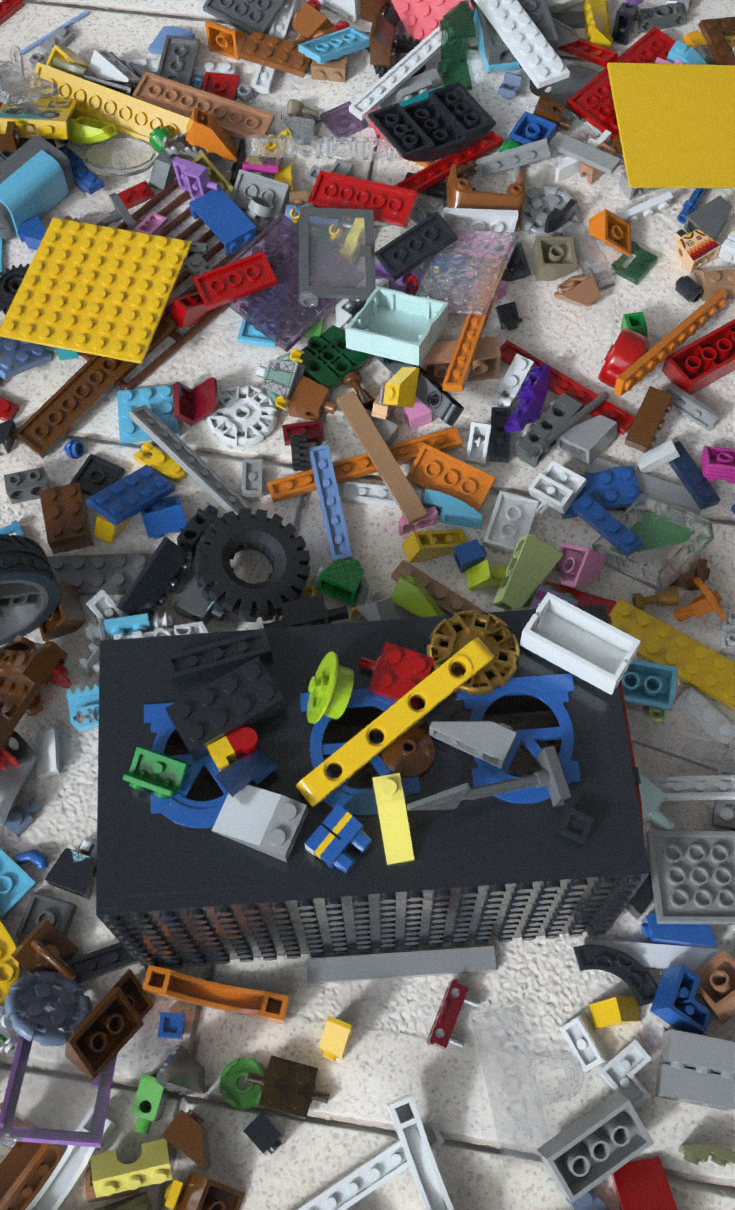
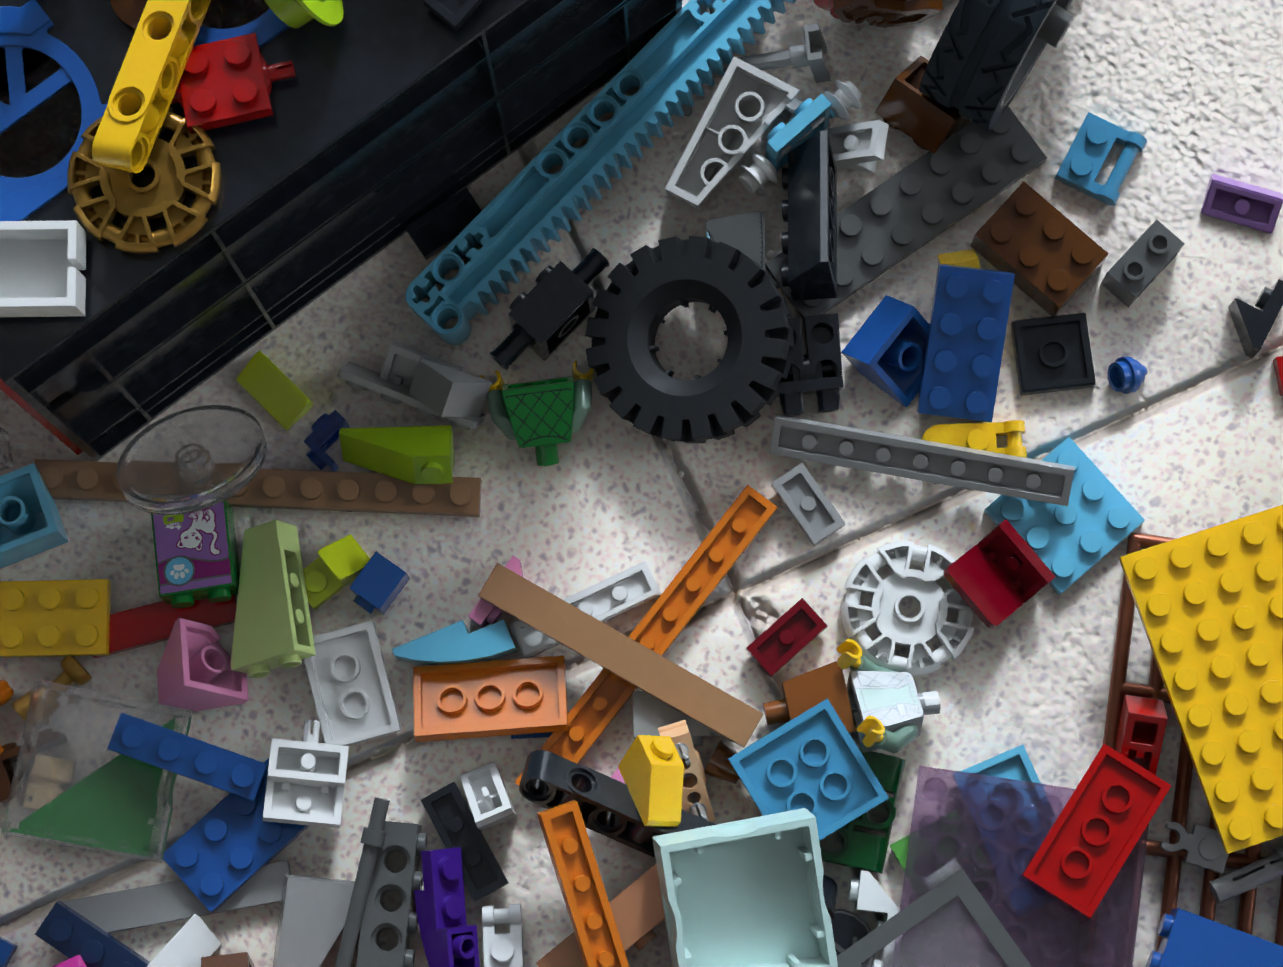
camera: 150 degrees right, 15 degrees up
(79, 397) = (1192, 448): reddish brown plate -> none
(299, 452) = (759, 586): black tyre -> none
(330, 503) = (651, 531): medium blue plate -> none
(334, 367) = (810, 767): none -> dark azure plate
(428, 545) = (443, 569): yellow slope -> none
(480, 739) = (56, 54): light grey slope -> none

